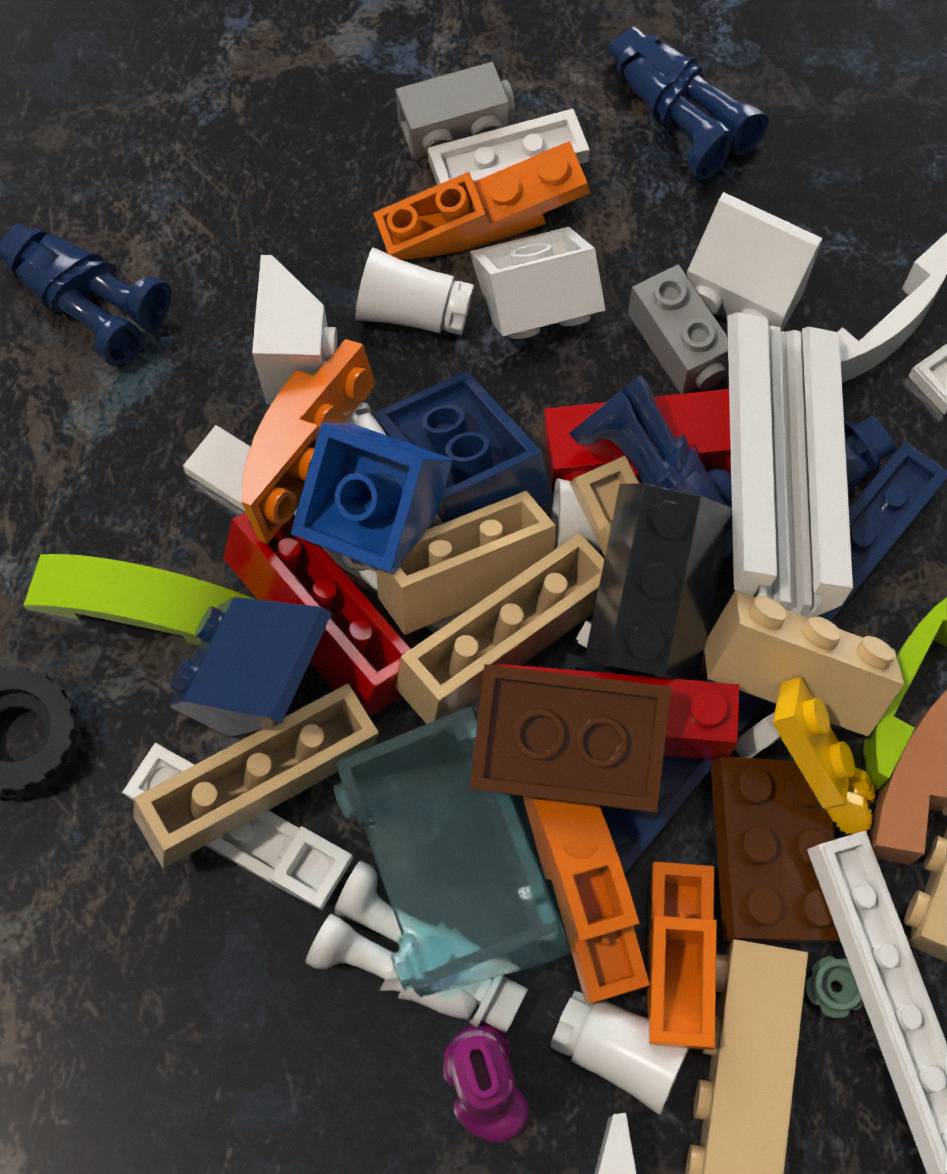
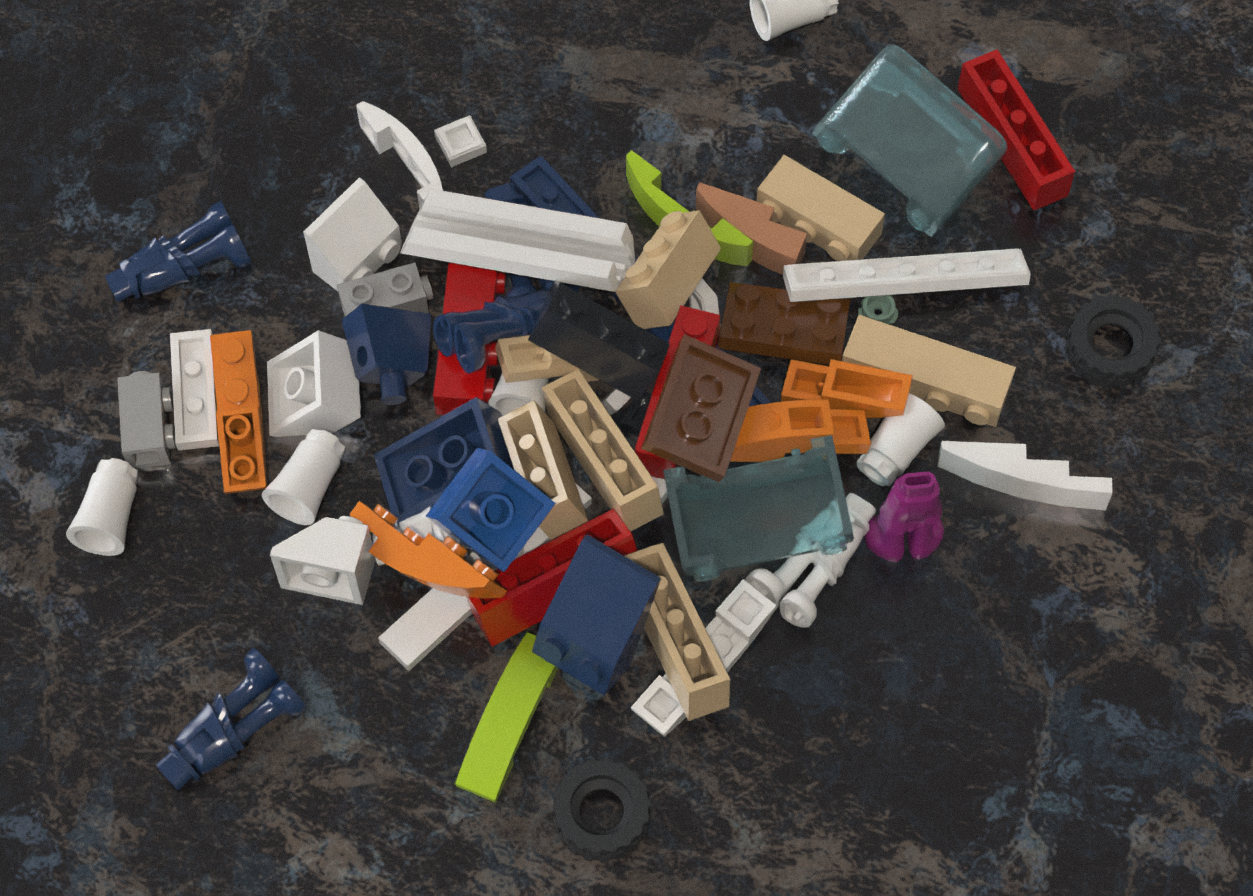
camera: 80 degrees left, 5 degrees down
(331, 97) = (105, 509): none -> white plant
(603, 344) = (388, 348): none -> dark blue torso
(822, 758) = (736, 273): yellow hinge -> none

